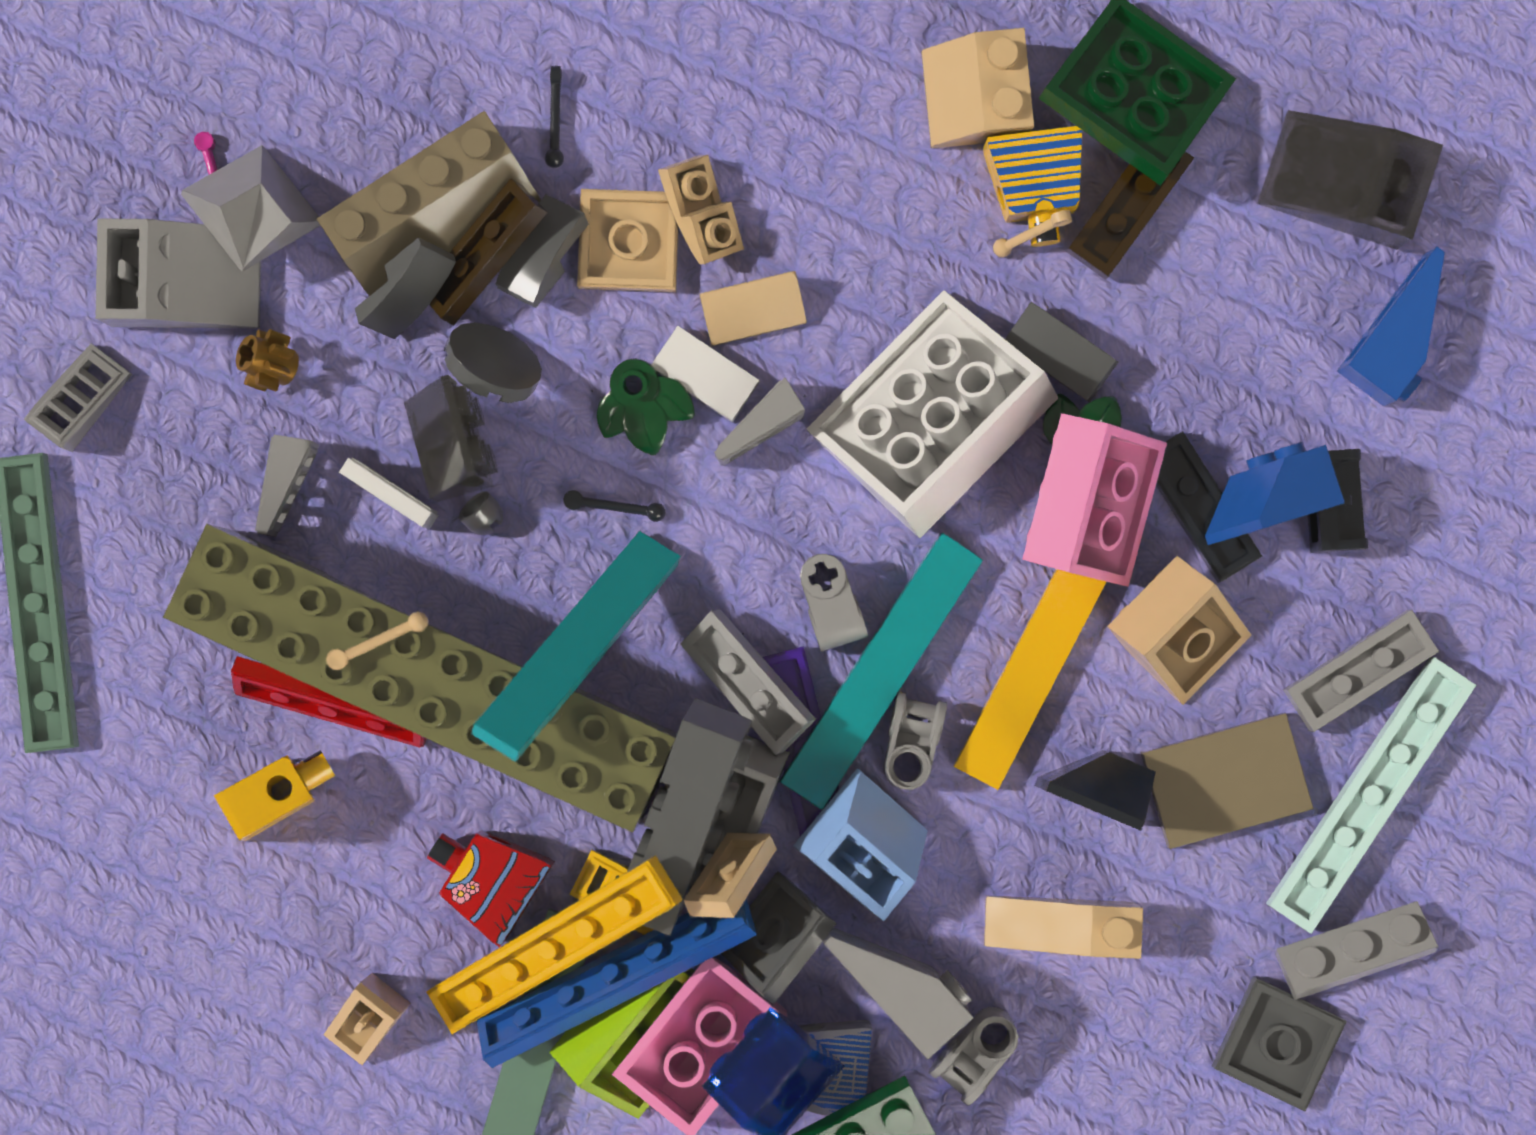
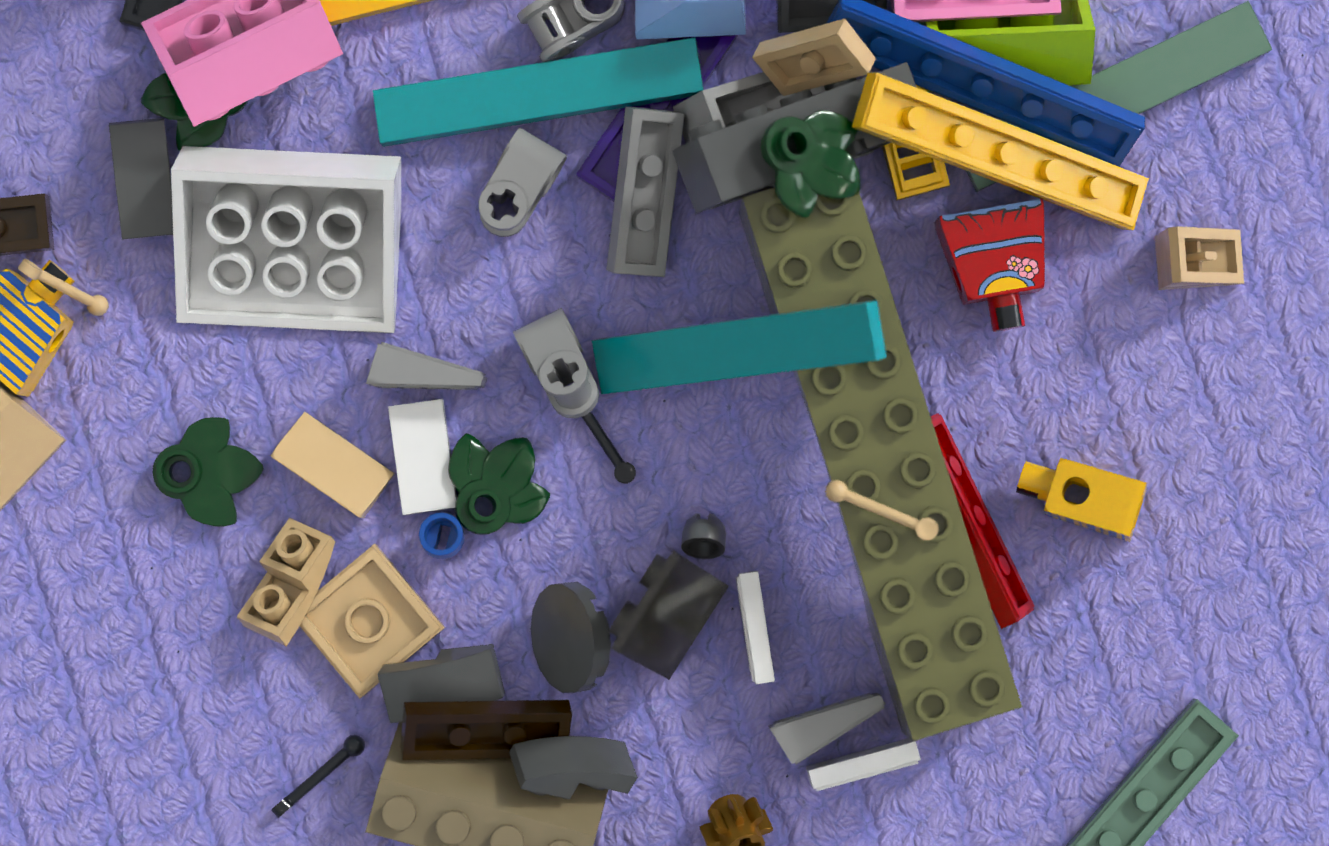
camera: 130 degrees left, 0 degrees up
(233, 482) = (863, 764): none -> white tile
(648, 333) = (431, 532): none -> blue hinge
(650, 811) = (819, 162): none -> dark green plate
(688, 520) = (557, 361): none -> light grey piece
(818, 226) = (215, 472): none -> dark green plate

